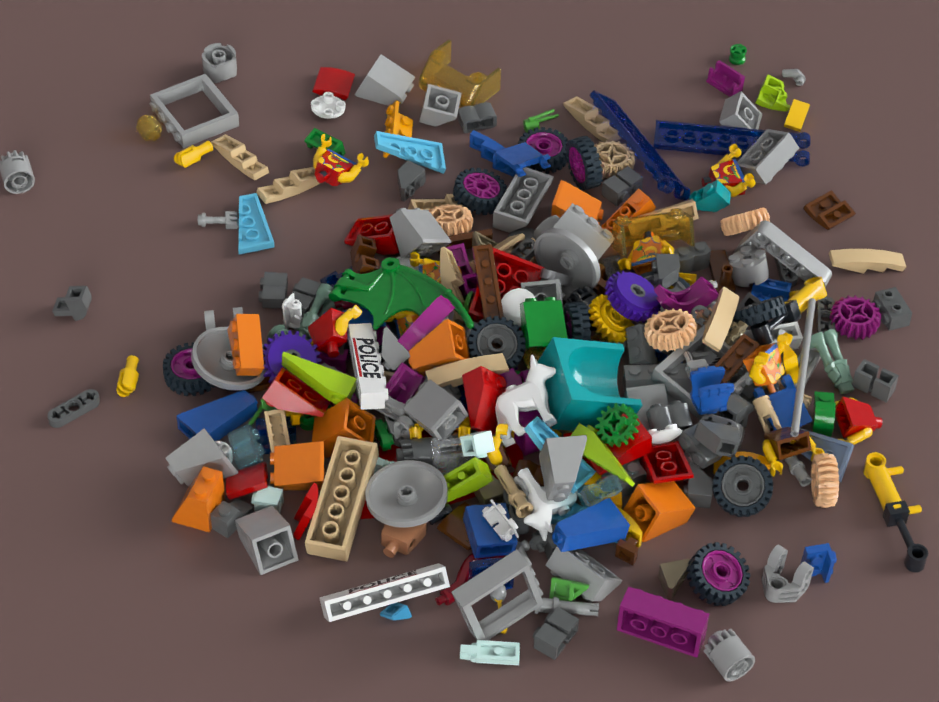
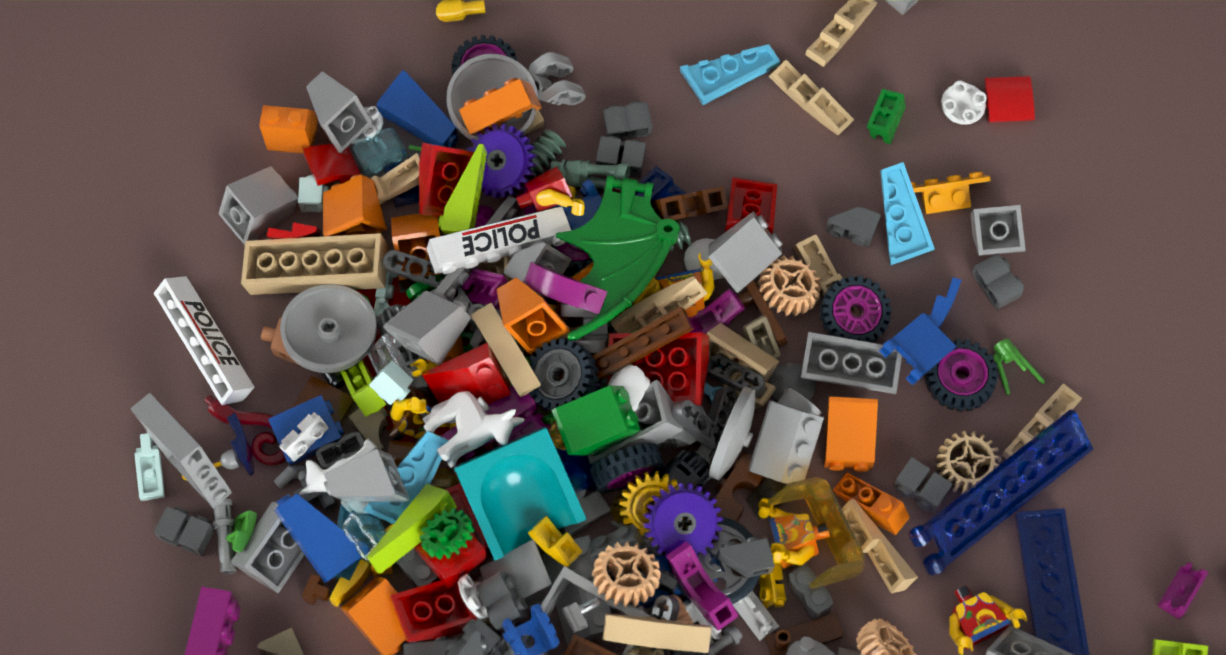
camera: 80 degrees right, 20 degrees up
(225, 514) = (284, 161): dark grey arch -> none
(230, 220) = (722, 17): light grey hinge -> none
(292, 312) = (585, 144): white hinge -> none
(335, 168) = (846, 132): torso -> none
(373, 420) = (400, 257): none -> dark grey beam
(386, 83) = (1022, 159): light grey slope -> none
(396, 612) = (186, 362): dark azure slope -> none
(474, 88) = (1043, 265): clear yellow windscreen -> none
(515, 496) = (341, 446): tan pin -> none
(584, 163) = (931, 425): black wheel -> none
(630, 377) = (558, 546): none -> yellow slope
(711, 197) = (932, 602): teal slope -> none
(740, 113) = (1111, 621): light grey slope -> none

